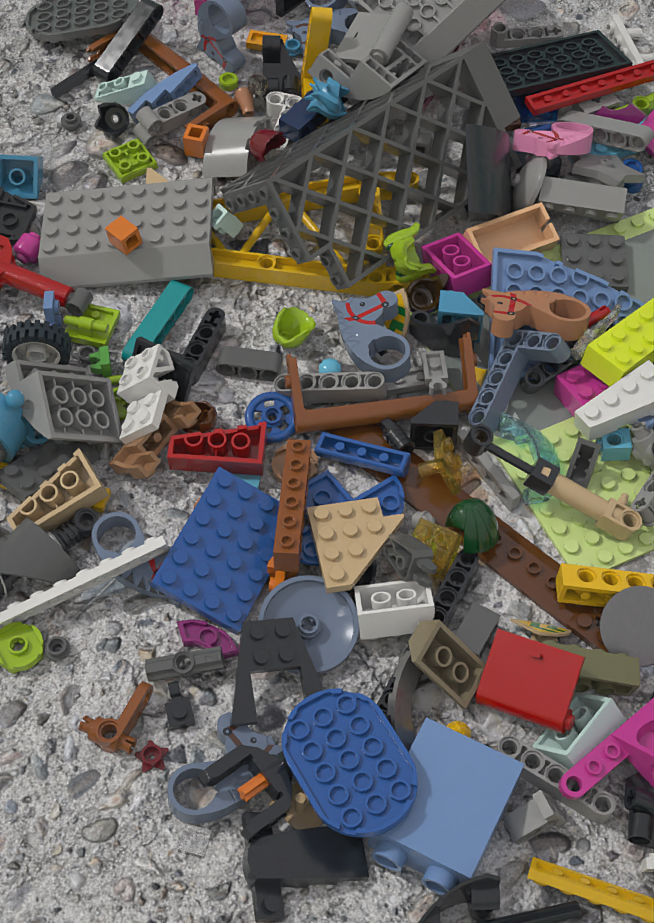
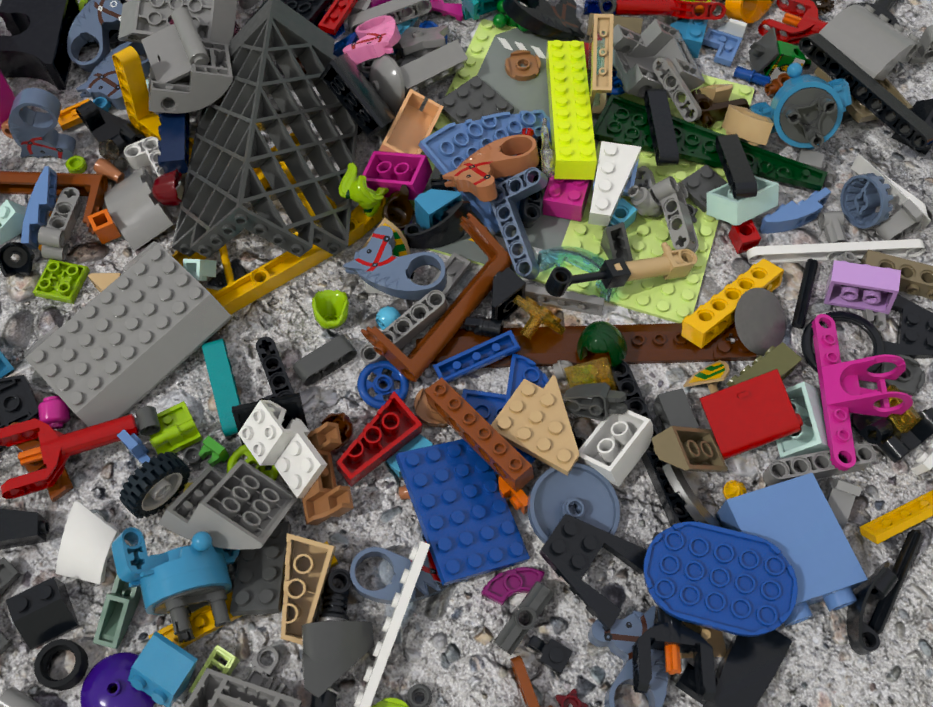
camera: 45 degrees left, 5 degrees up
(123, 235) = (137, 340): orange brick -> none
(327, 98) = (185, 120): dark azure hair -> none
(435, 371) = (464, 259): light grey plate -> none

